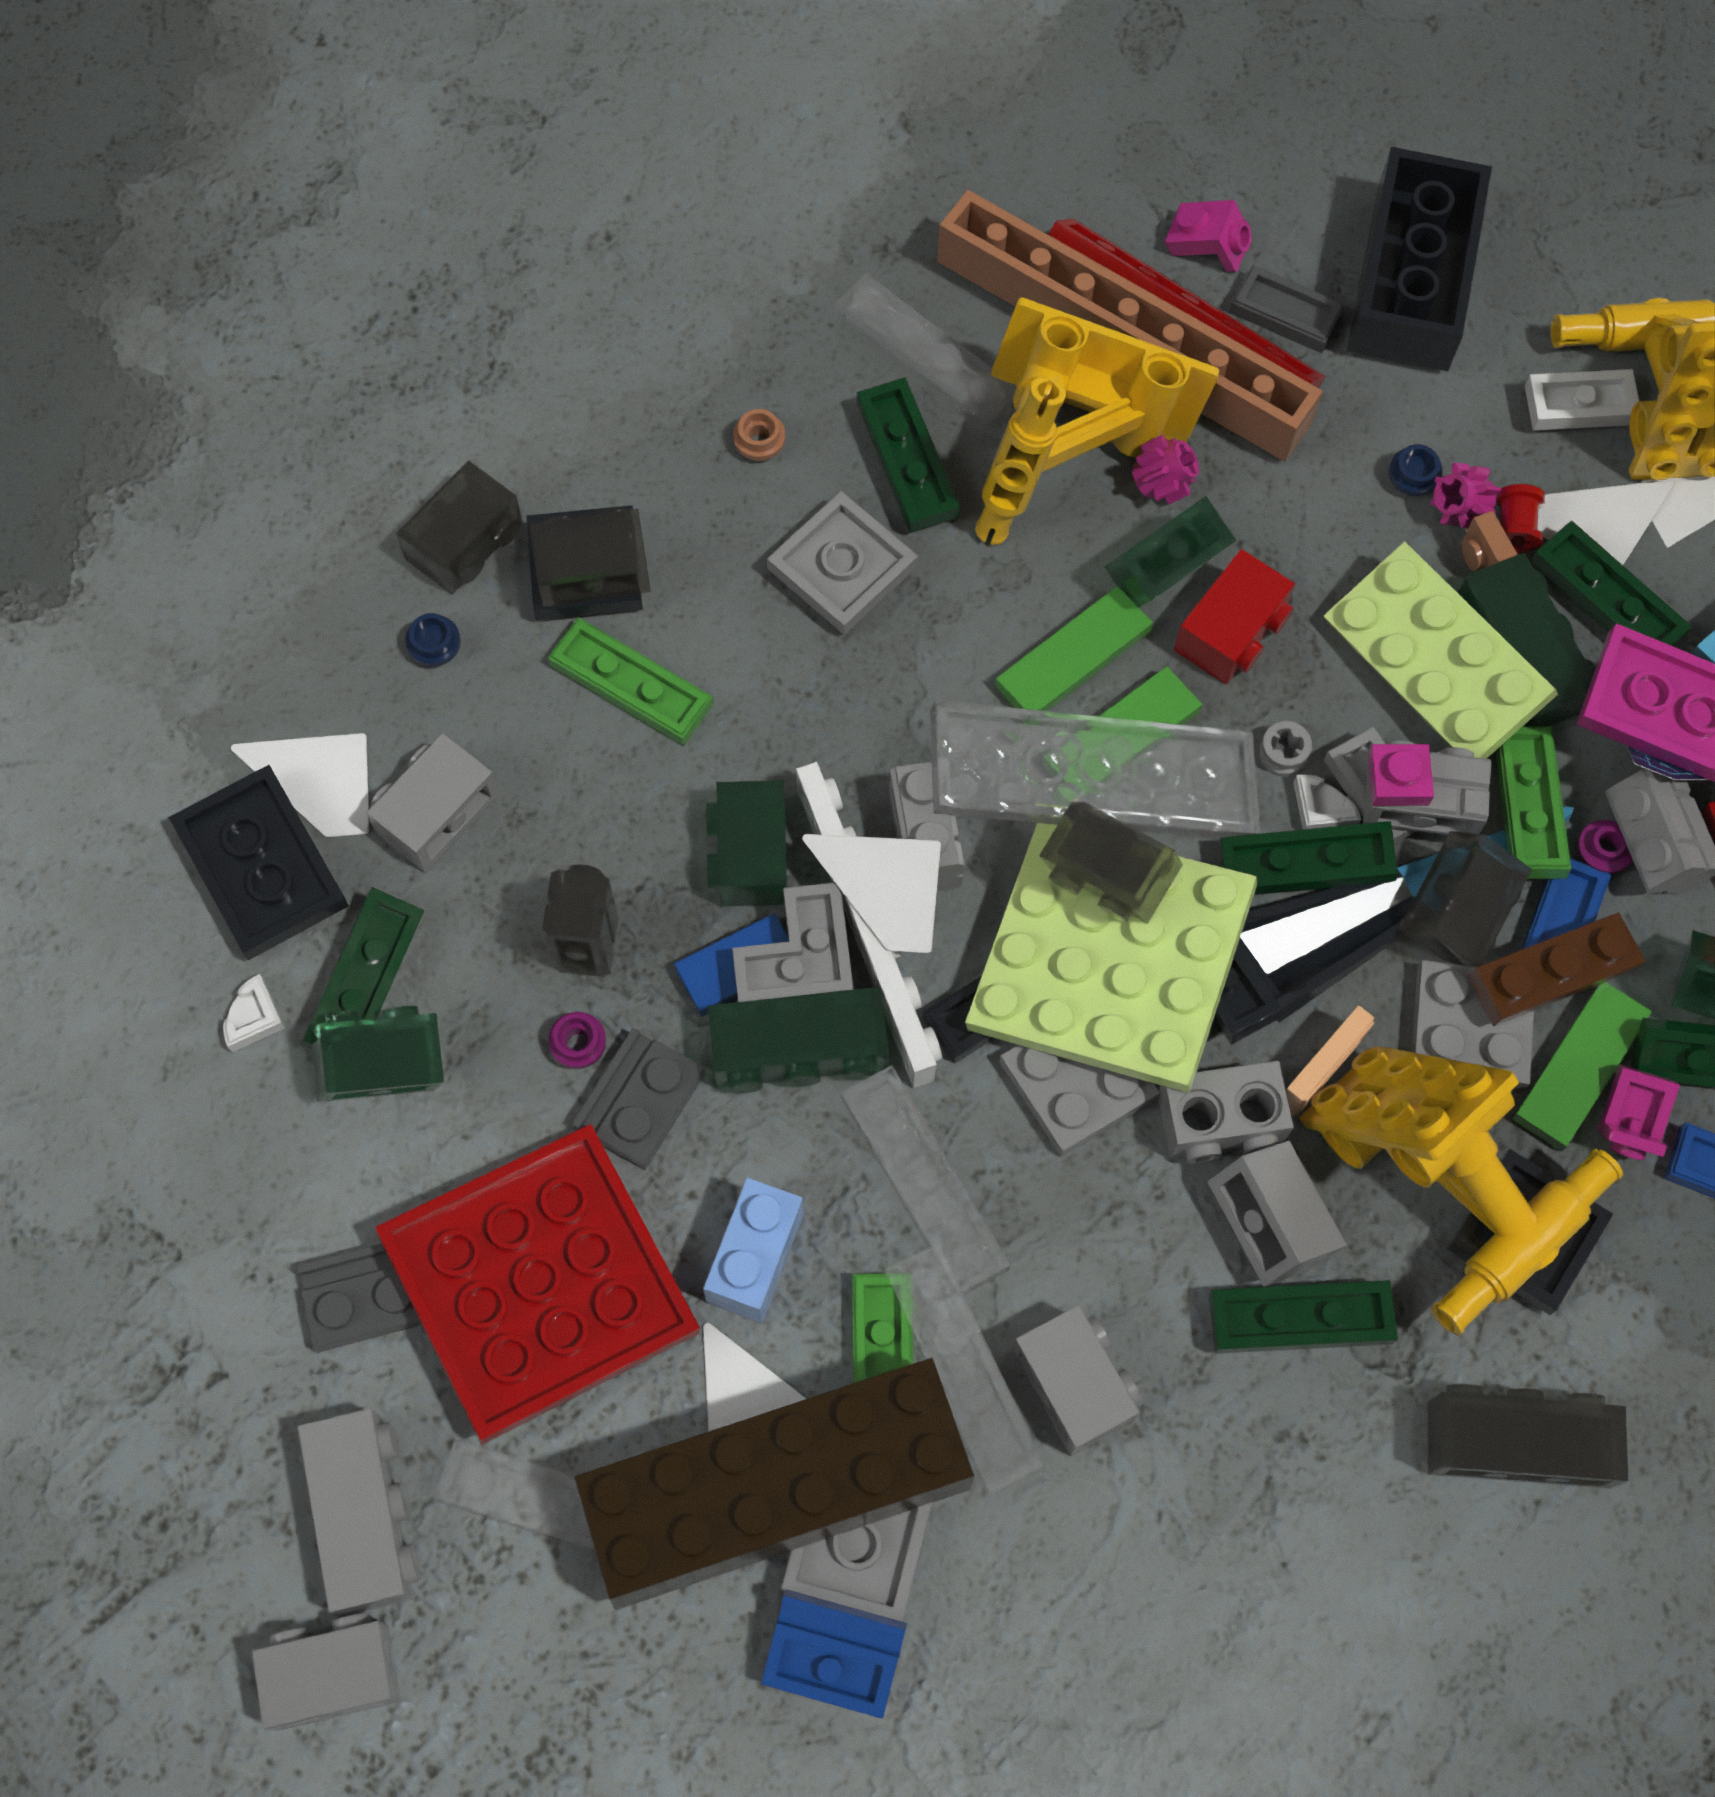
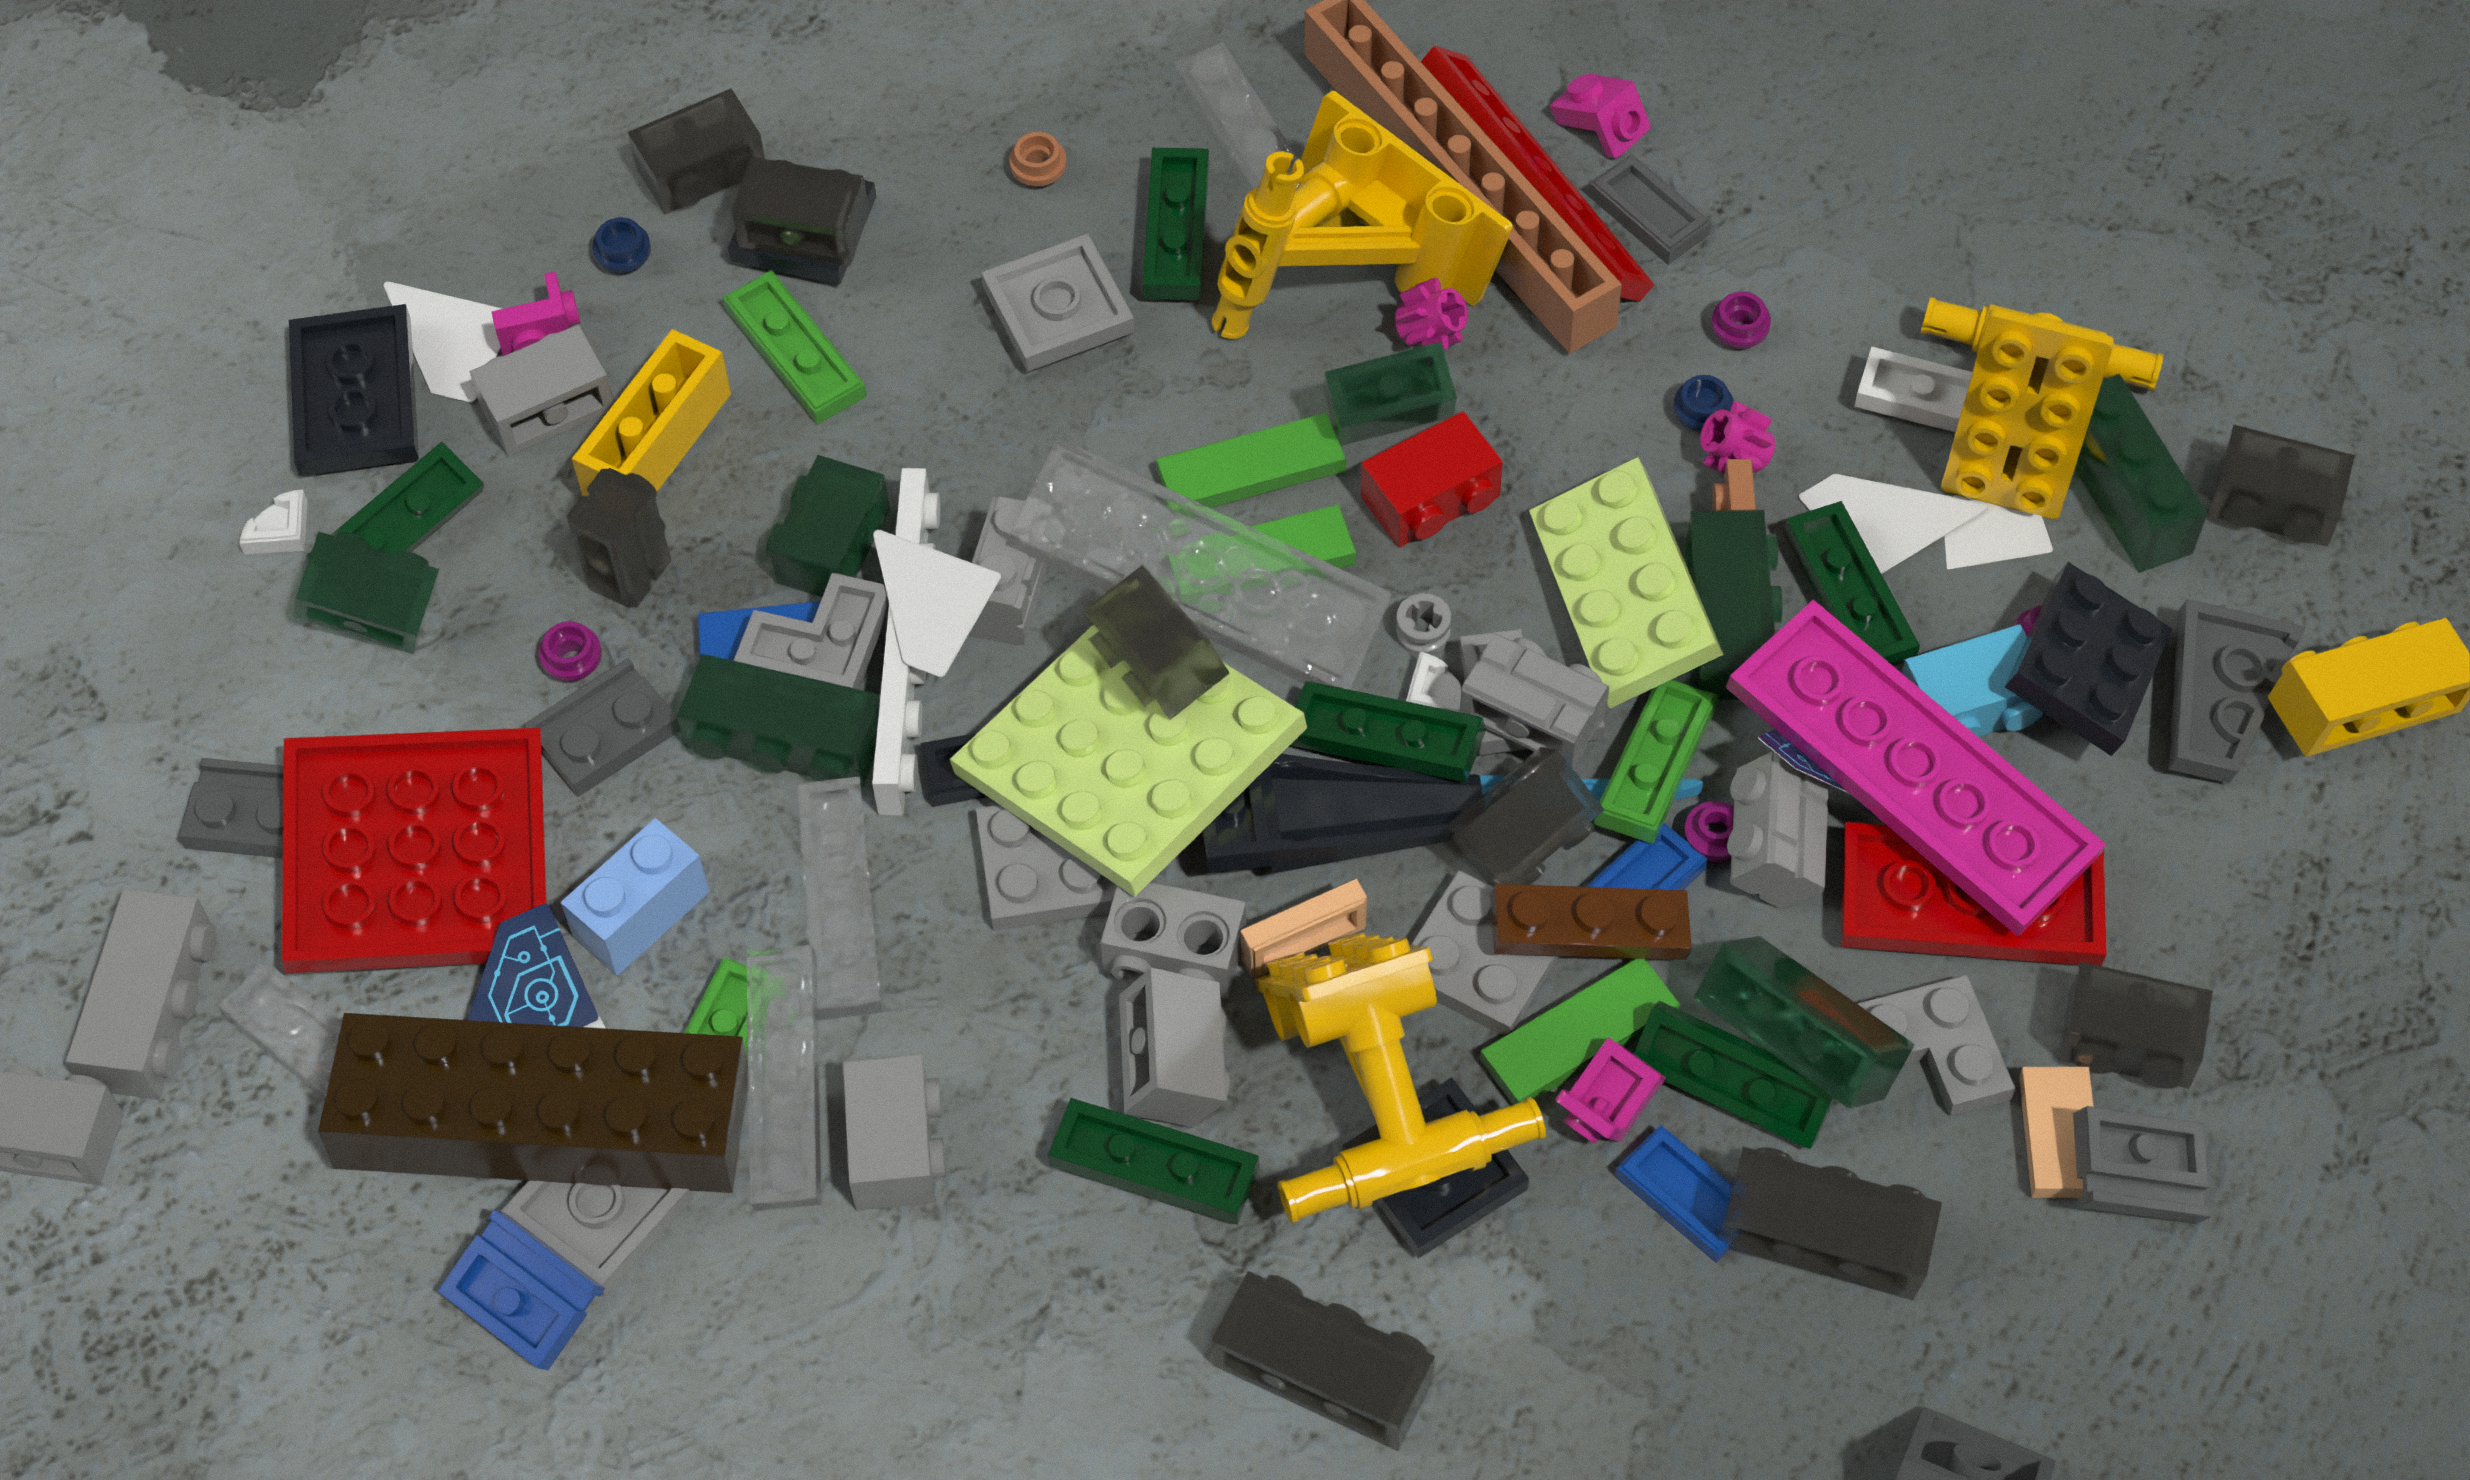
camera: 25 degrees right, 10 degrees down
(391, 750) = (532, 321): none -> dark pink bracket
(552, 800) = (657, 413): none -> yellow brick
(698, 1370) = (532, 976): none -> dark blue sticker
(1400, 775) = (1499, 664): dark pink plate -> none
(1412, 373) = (1742, 308): none -> magenta plate
(1420, 259) = (1805, 197): black brick -> none
(1520, 515) = (1788, 481): red bush -> none

